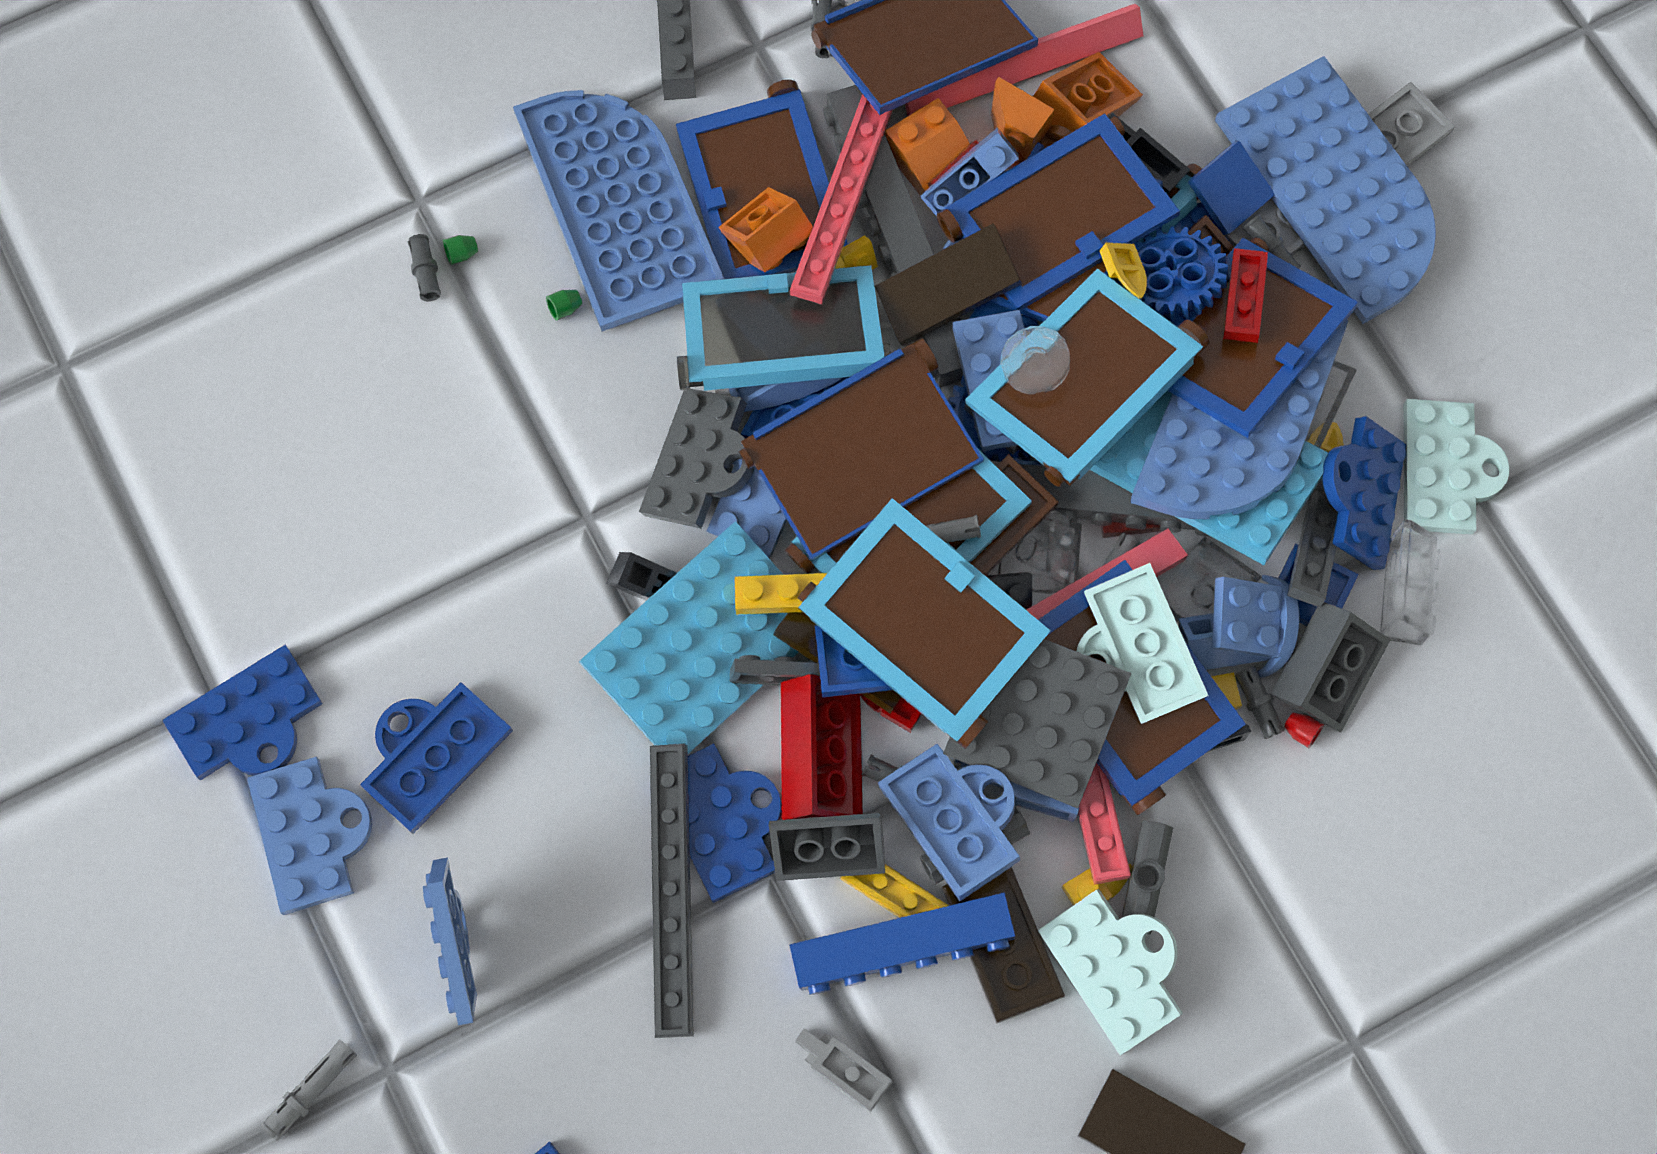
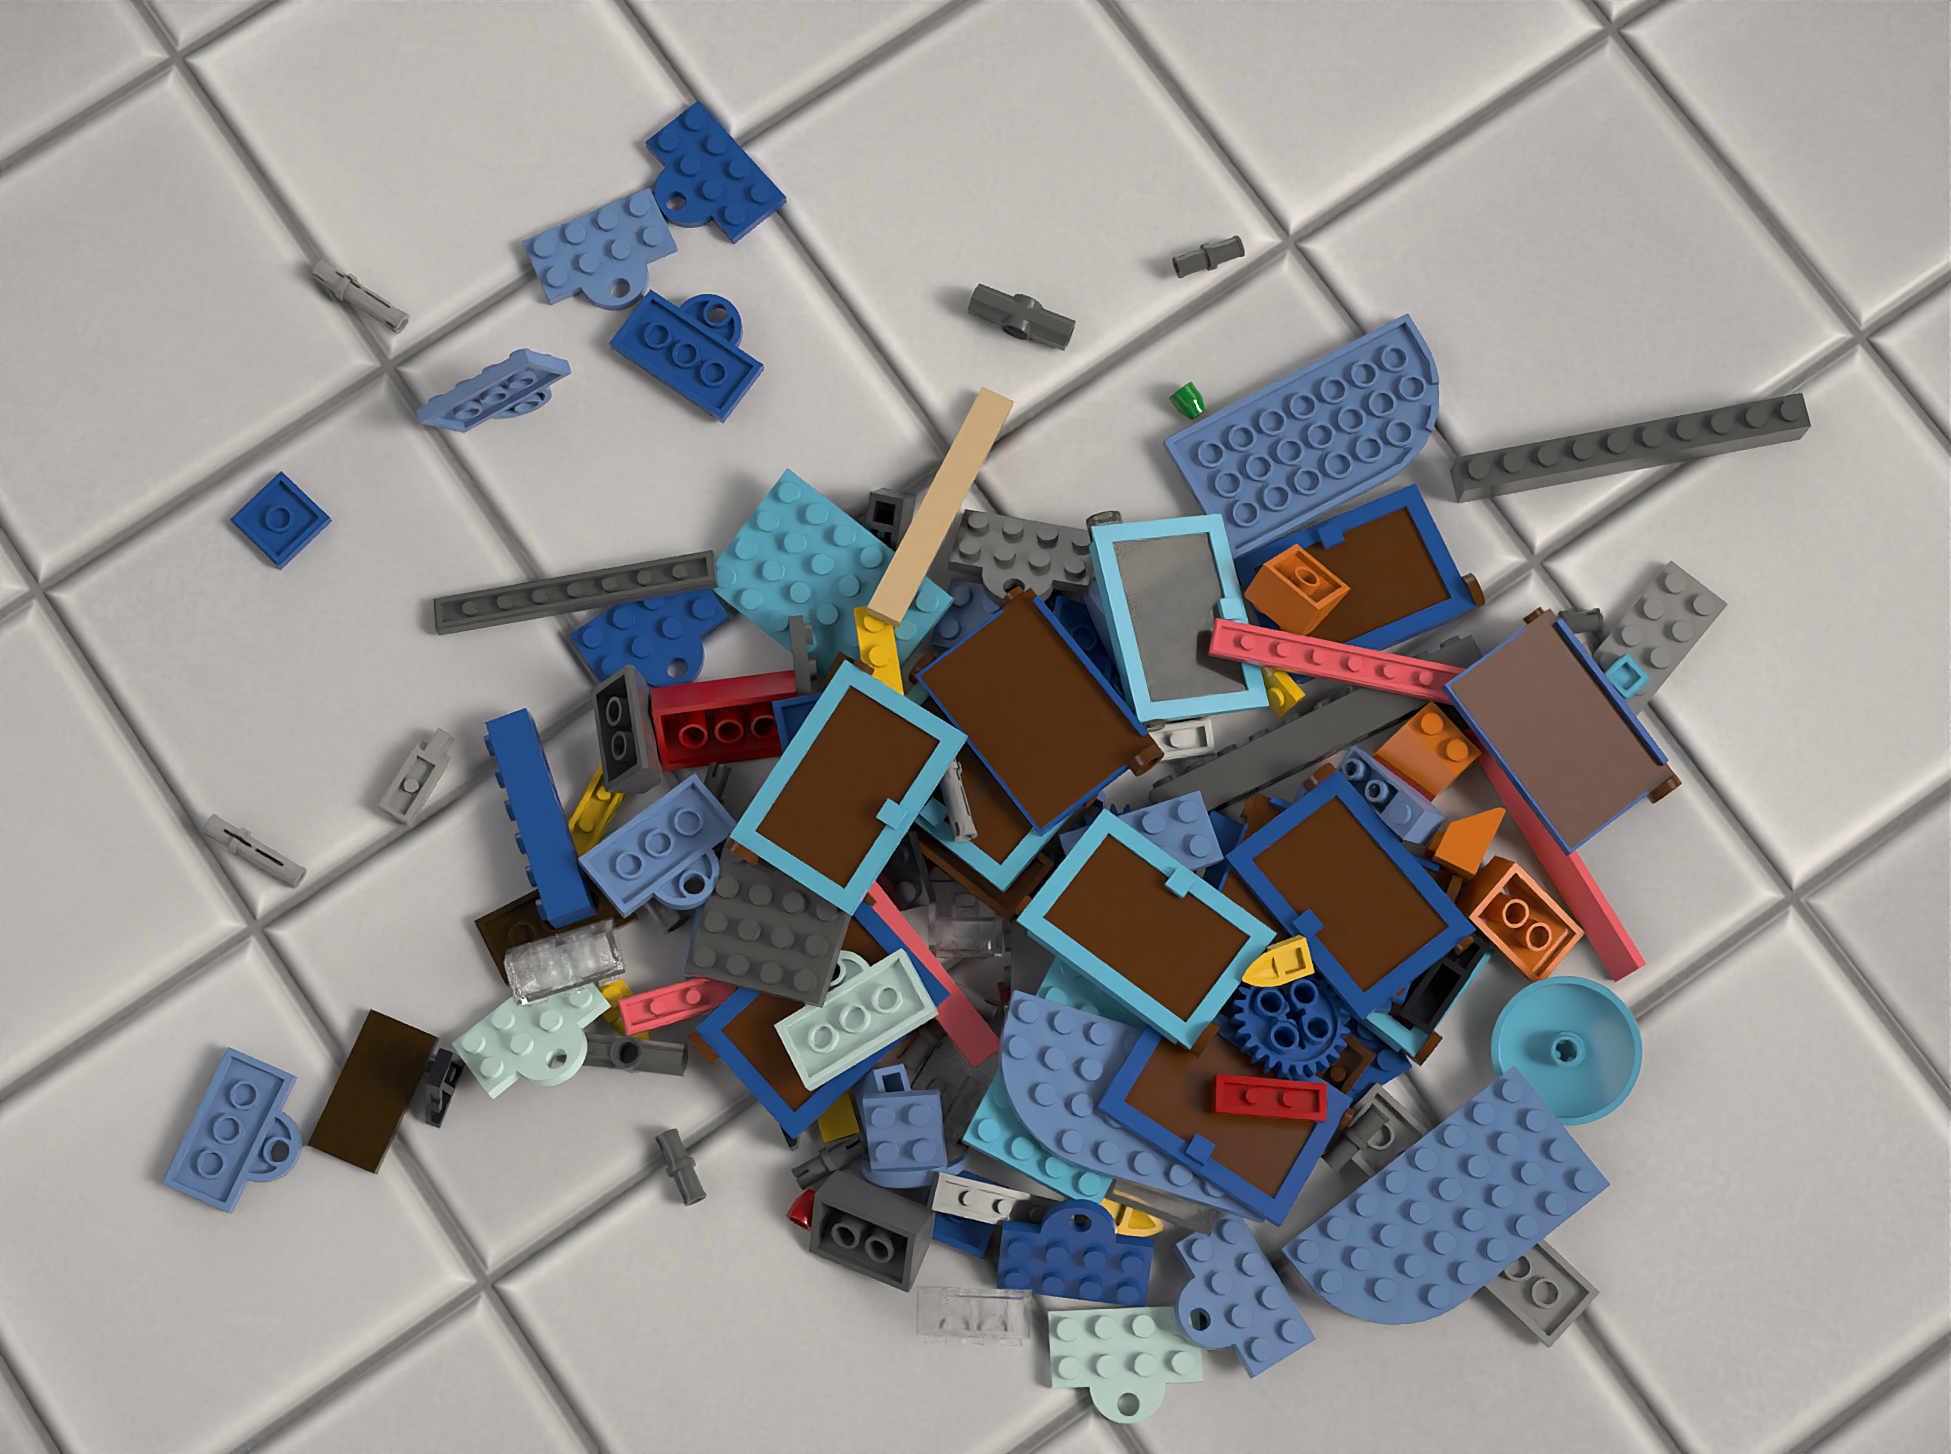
camera: 85 degrees right, 5 degrees up
(454, 438) = (1021, 317): none -> dark grey piece
(459, 248) = (1236, 288): green hose -> none
(642, 525) = (939, 508): none -> tan tile
(948, 284) = (1247, 783): dark brown tile -> none
(1035, 360) = (1151, 872): clear tile -> none
(1055, 924) = (565, 963): none -> clear slope
(1157, 1058) = (443, 1076): none -> black wing
(1201, 67) = (1571, 1046): none -> medium azure dish
(1231, 188) = (1418, 1085): blue tile -> none
(1257, 840) = (681, 1167): none -> dark grey pin
(1404, 363) = (1238, 1297): none -> medium blue plate

